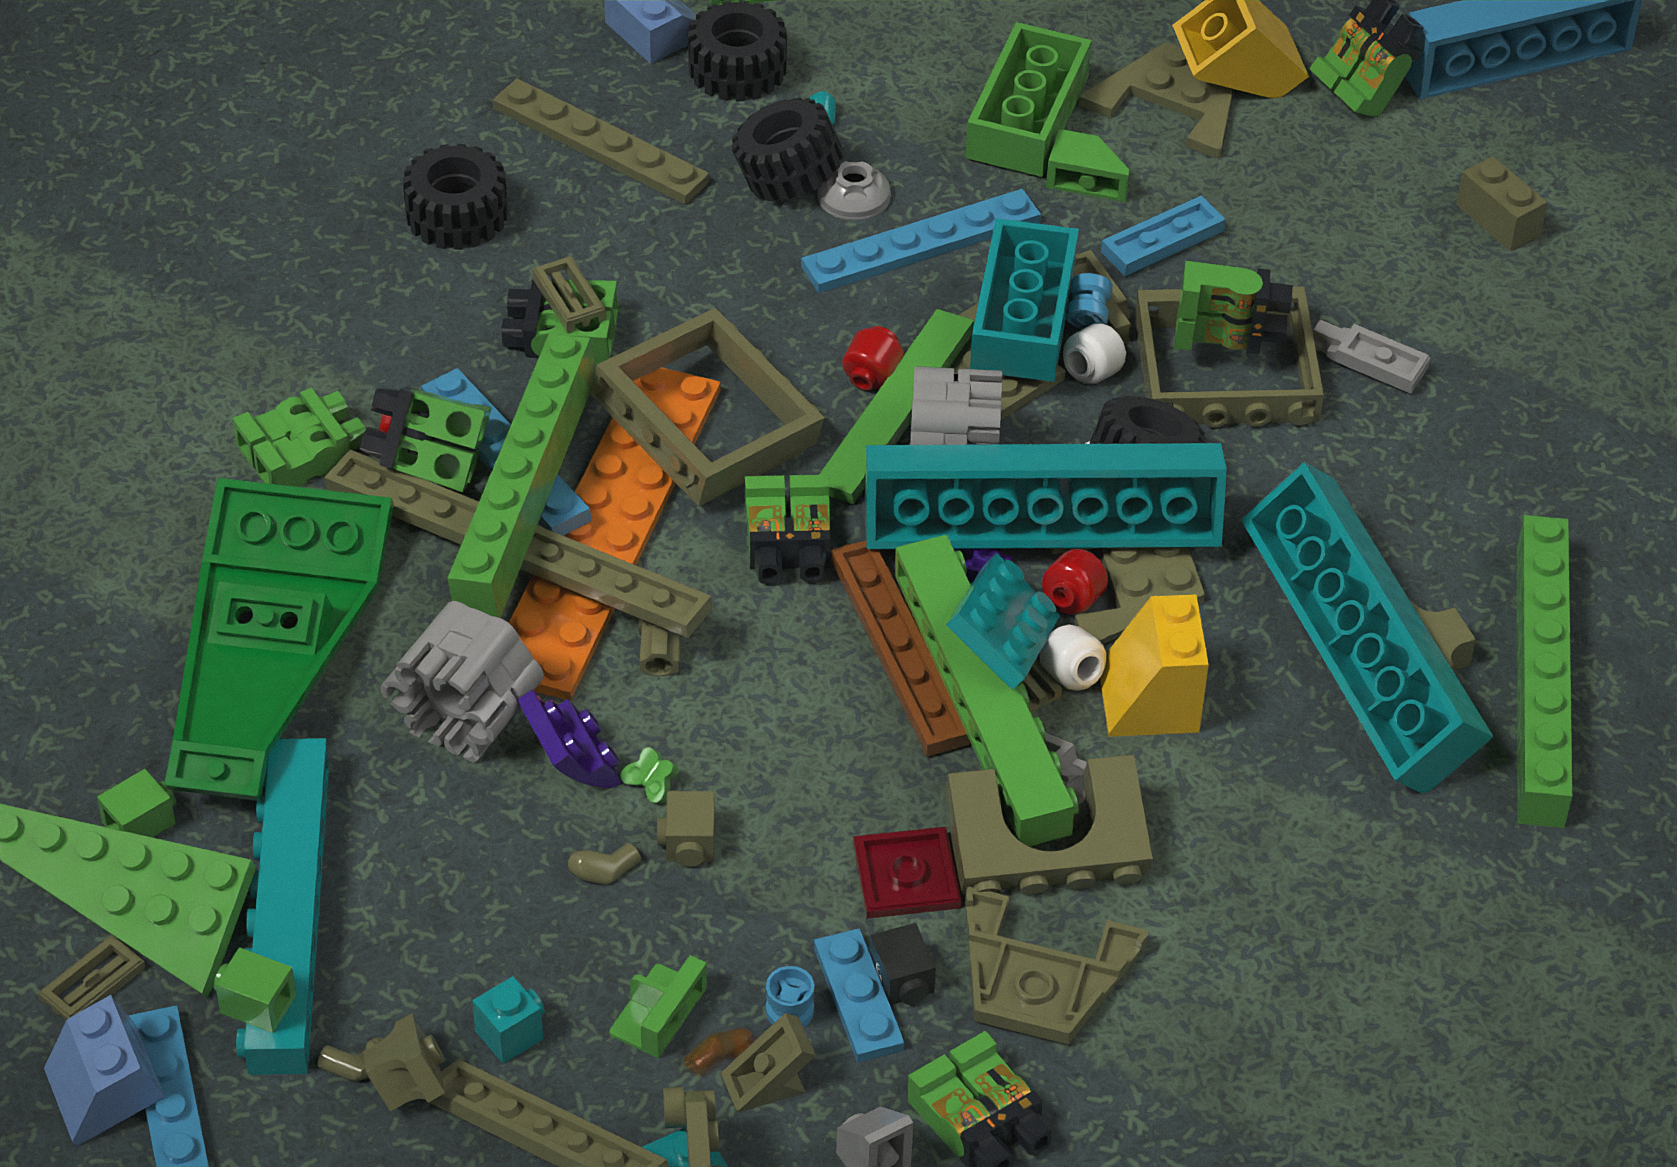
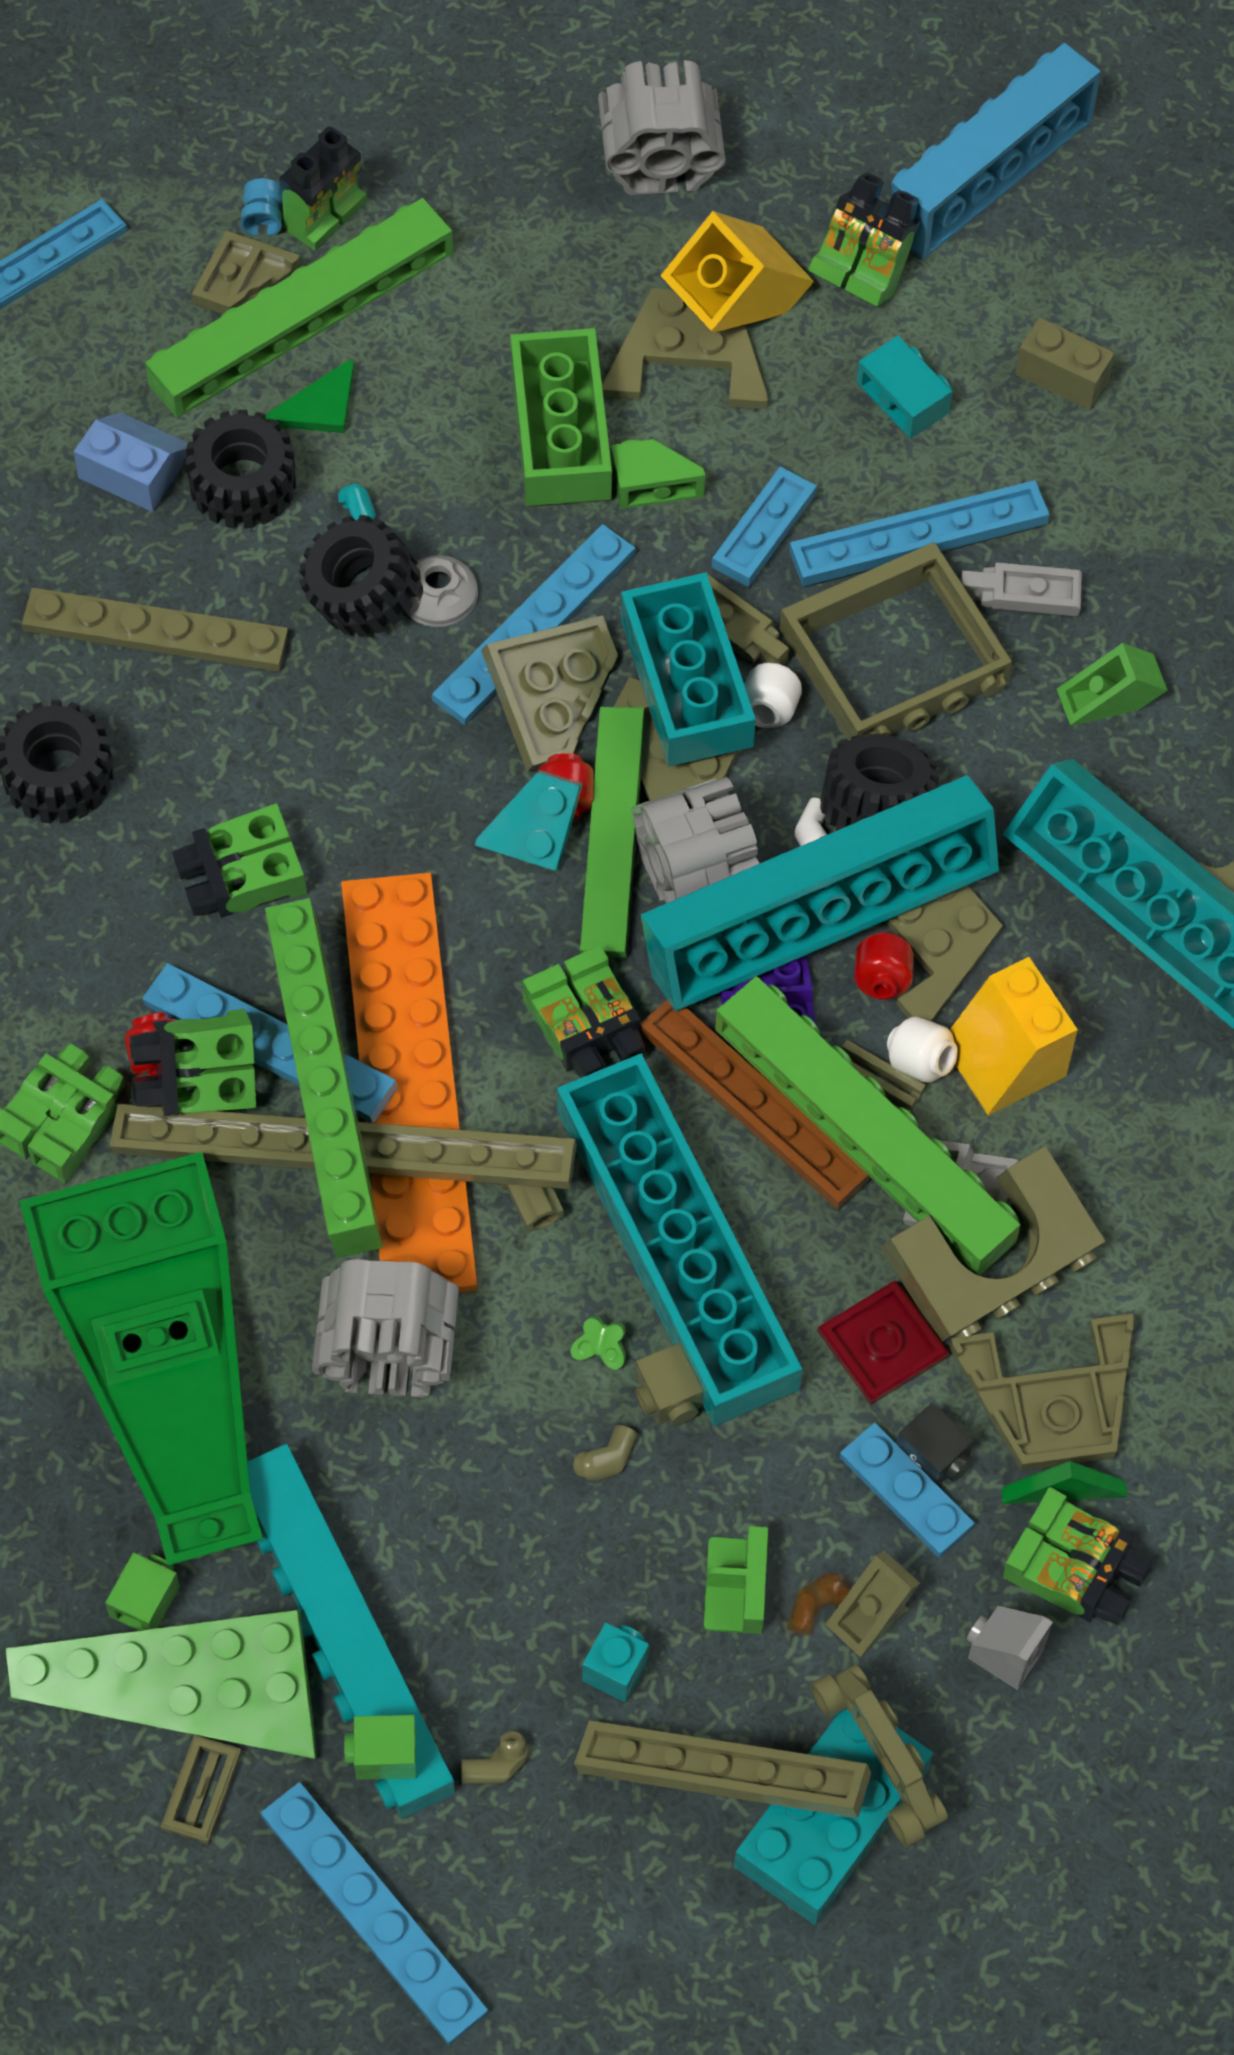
camera: 25 degrees left, 15 degrees up
(100, 1071) = (275, 1888): medium blue slope -> none
(405, 1065) = (553, 1753): olive brick -> none
(572, 741) = (515, 1344): dark purple slope -> none
(579, 315) = (230, 852): olive tile -> none
(667, 444) = (416, 968): olive window -> none
(763, 721) = (678, 1239): none -> teal brick
(790, 992) = (857, 1516): dark azure wheel -> none
(833, 370) = (535, 821): none -> teal wing
(834, 35) = (319, 405): none -> green tile
(907, 278) = (550, 684): none -> olive plate
(1004, 620) = (856, 1048): teal plate -> none
(1015, 1044) = (1068, 1478): none -> green tile
(1089, 301) = (747, 642): dark azure wheel -> none
(1231, 307) = (891, 606): hips -> none
(1331, 286) = (946, 524): none -> dark azure plate
(1347, 175) = (904, 386): none -> teal brick
(1411, 449) = (1112, 685): none -> bright green slope

